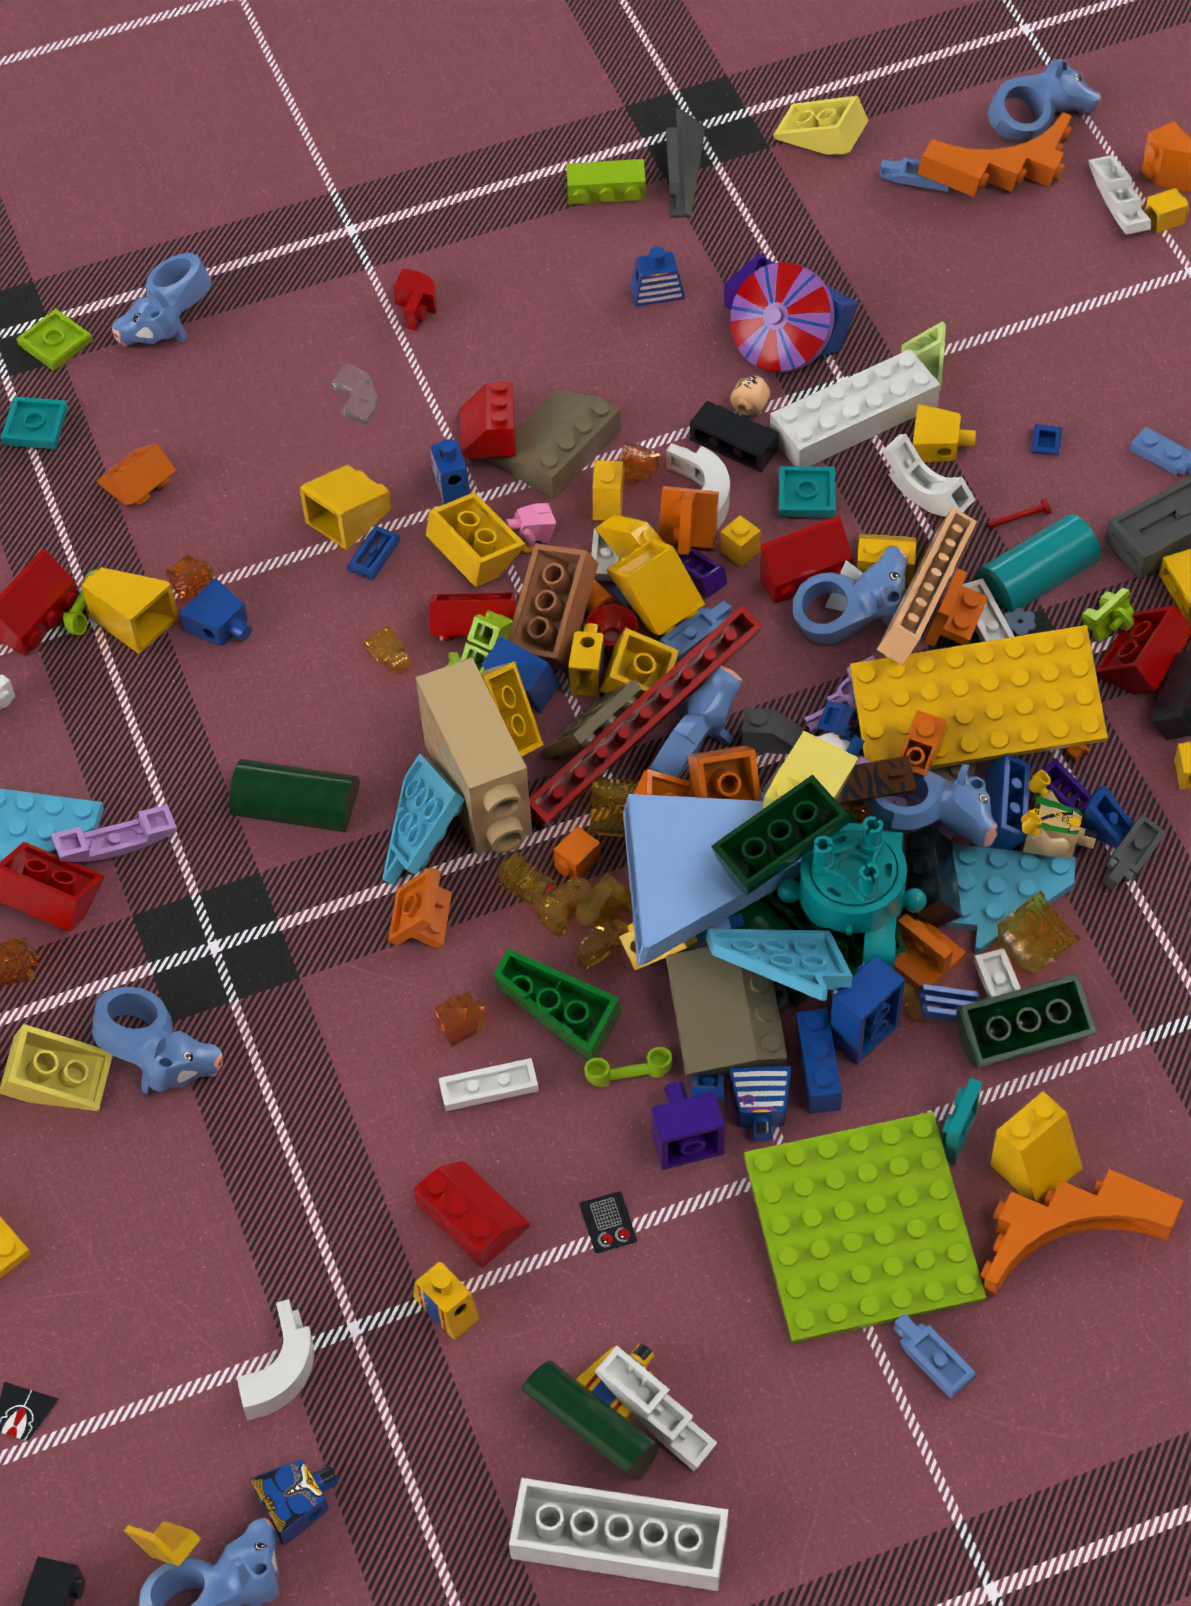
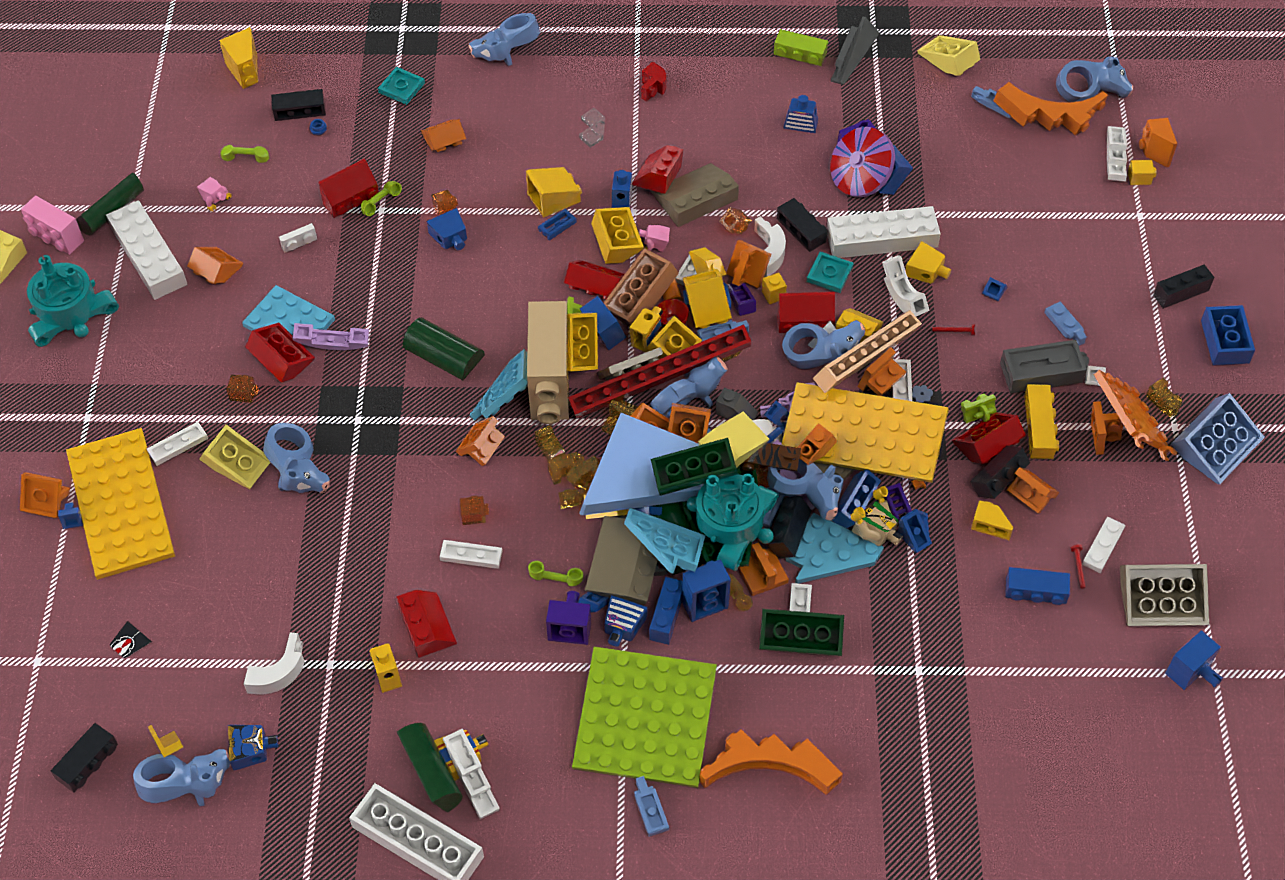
camera: 20 degrees right, 0 degrees up
(54, 339) = (436, 41): lime tile -> none
(130, 606) = (401, 208): yellow slope -> none
(388, 647) = (538, 283): clear yellow plate -> none
(484, 635) = (589, 291): lime hips -> none
(560, 1002) = (536, 525): green wedge -> none
(576, 853) = (586, 439): orange brick -> none
(607, 489) = (708, 231): yellow slope -> none
(608, 1222) = (501, 658): black sticker -> none
(750, 395) = (823, 203): light nougat head -> none
(929, 349) = (946, 213): yellowish green slope -> none
(946, 998) = (760, 600): blue tile -> none
(958, 1125) = (733, 676): teal plate -> none
(1035, 934) = (834, 583): clear yellow slope -> none
(1036, 1149) = (769, 709): yellow slope -> none
(1041, 562) = (952, 362): teal brick -> none
(1133, 851) = (921, 555): dark grey hinge -> none

